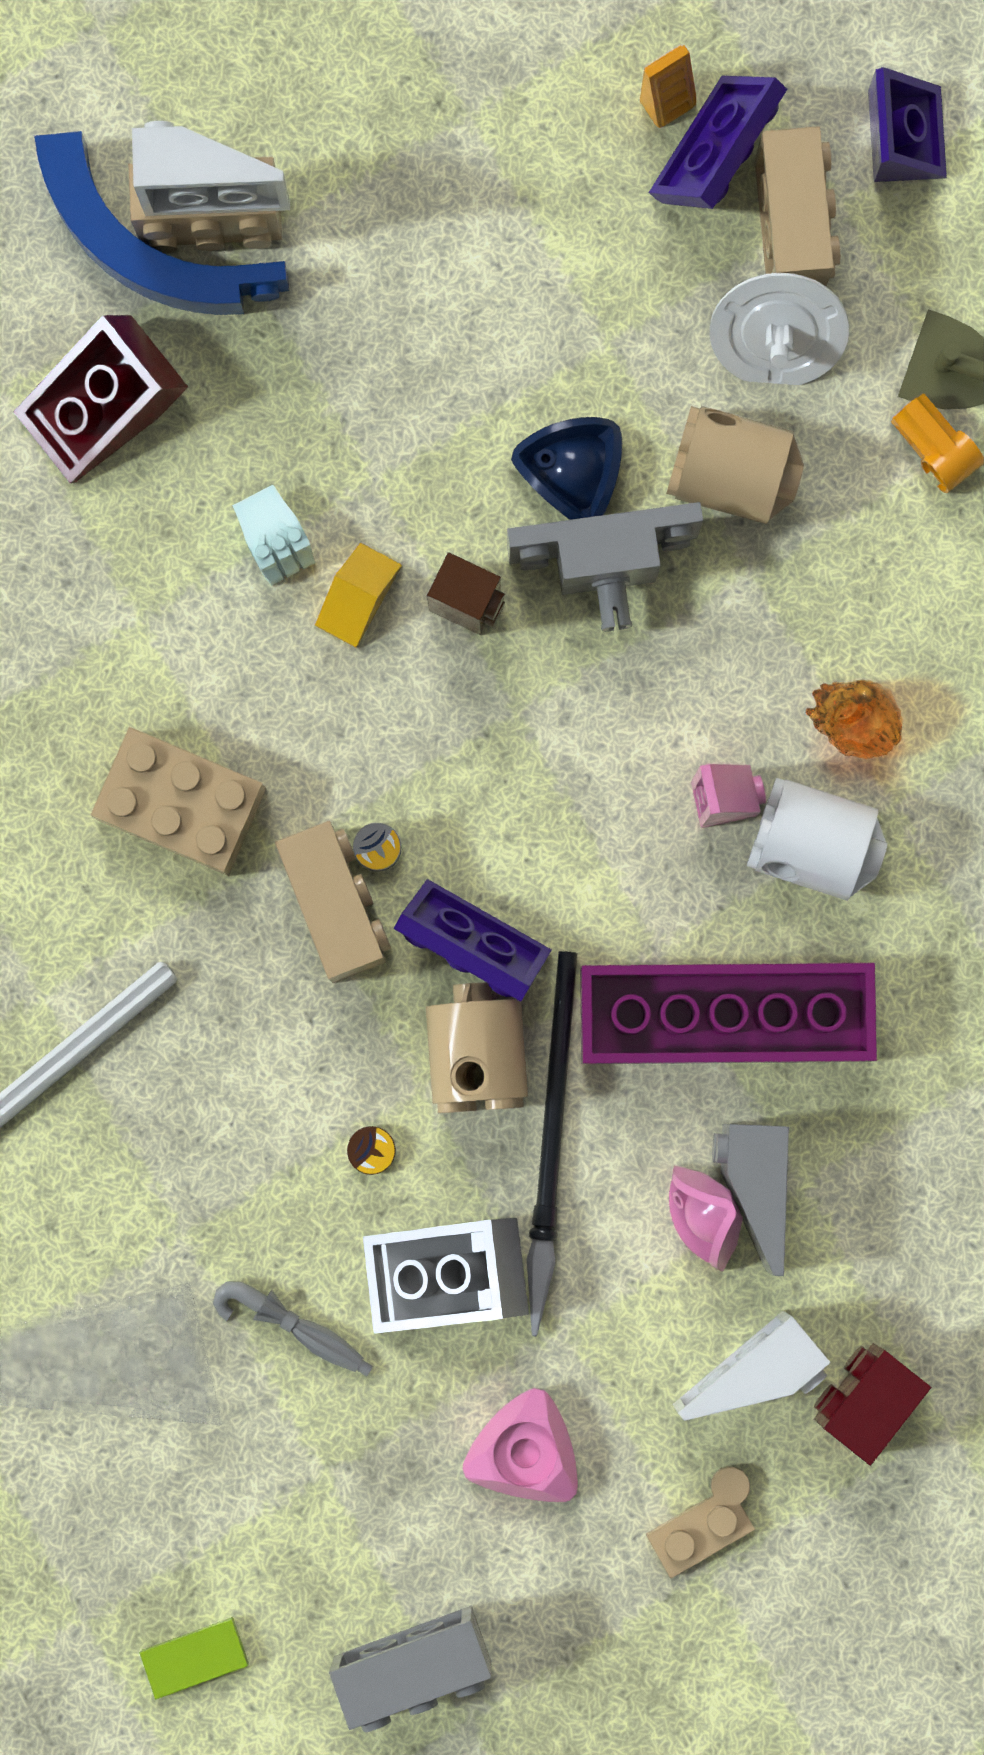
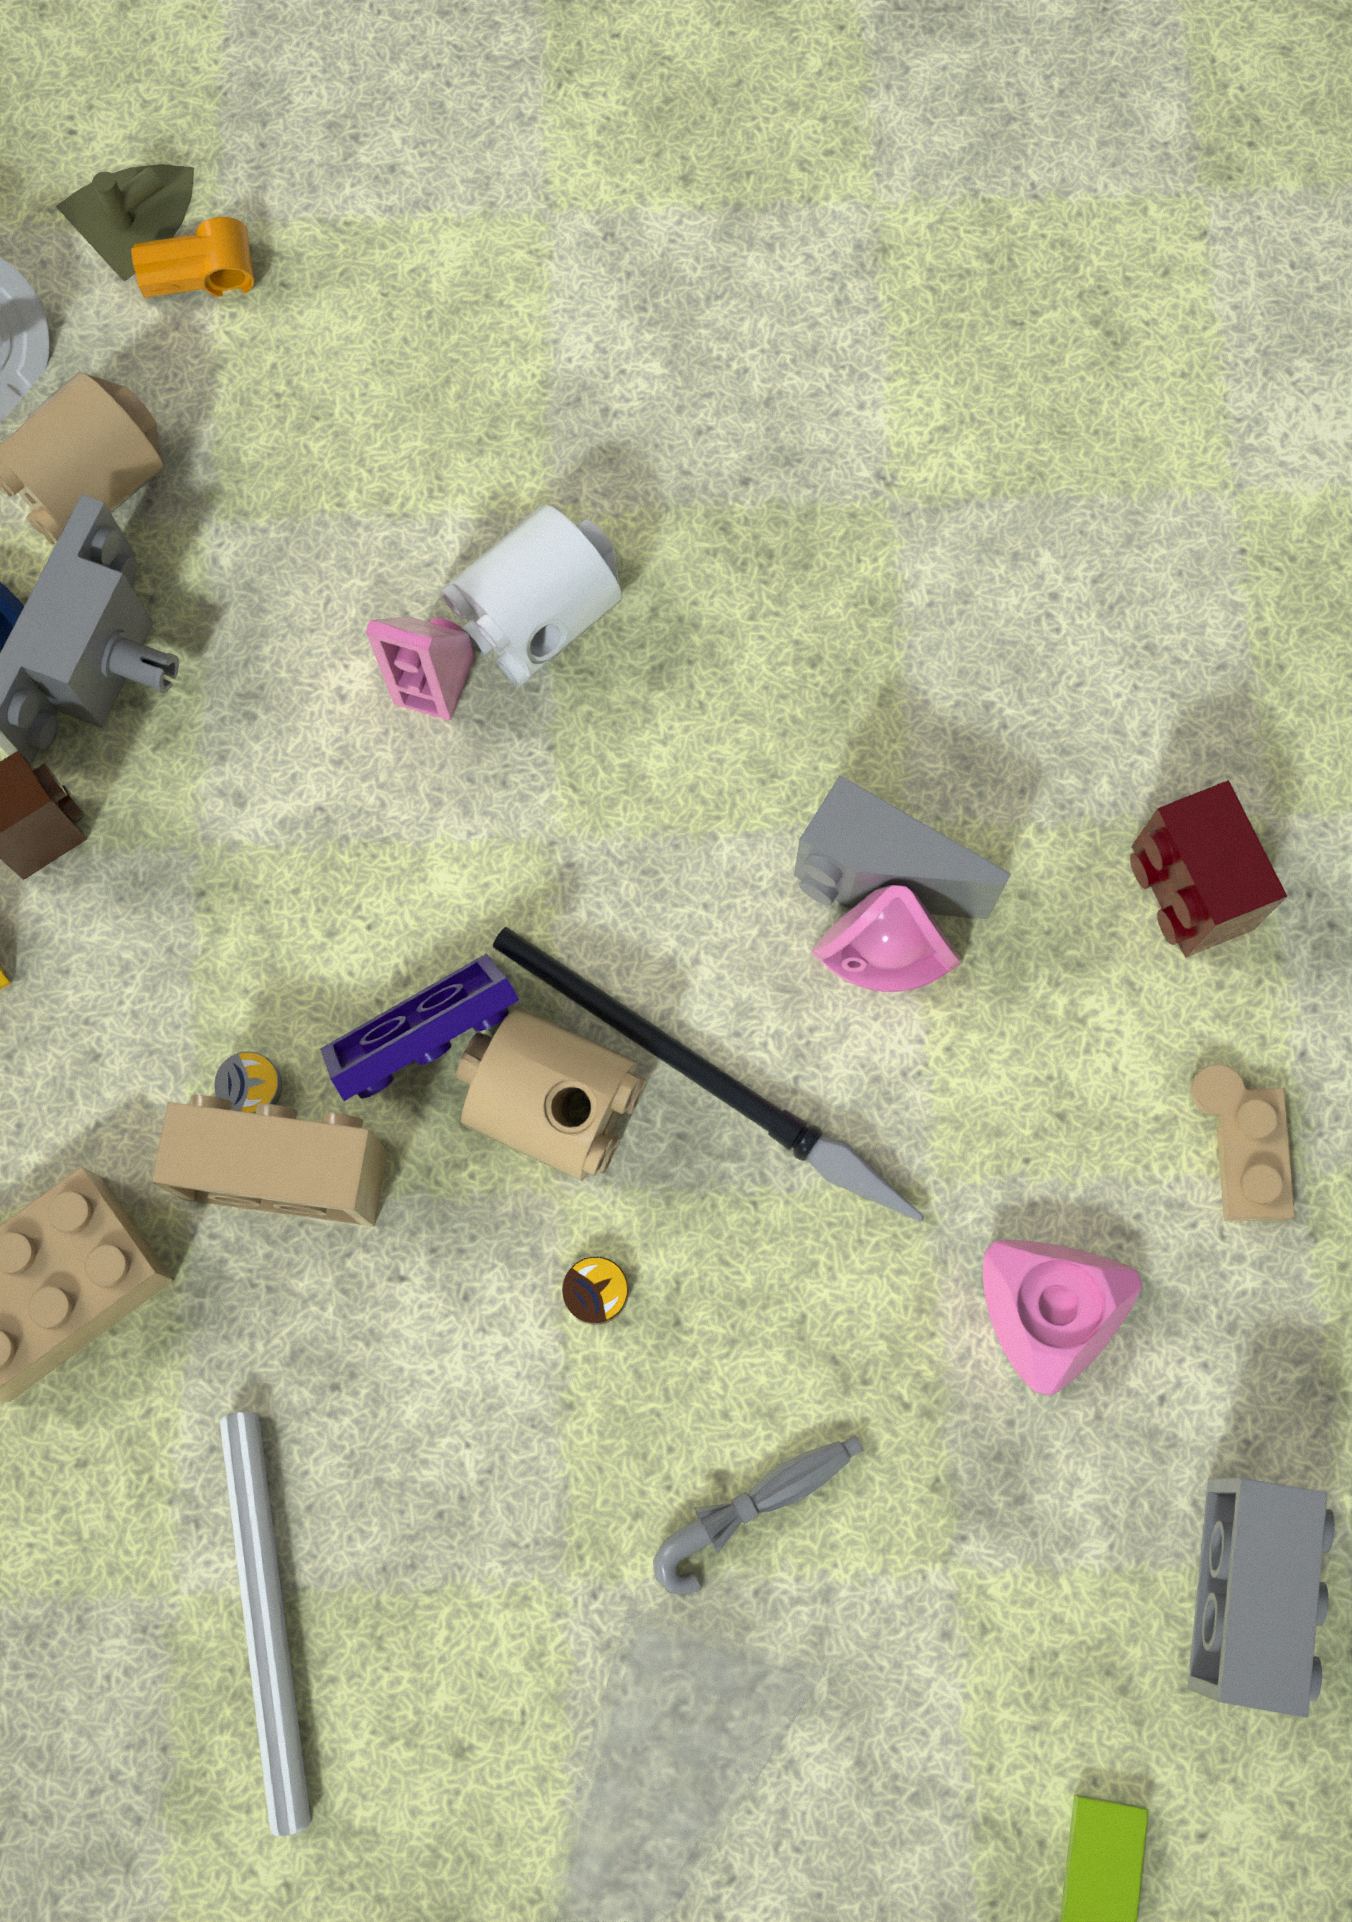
camera: 60 degrees left, 10 degrees down
(445, 1275) = (792, 1284): light grey slope -> none
(728, 1013) = (670, 794): magenta brick -> none
(763, 1369) = (1101, 961): white slope -> none
(857, 717) = (431, 483): clear orange hair -> none

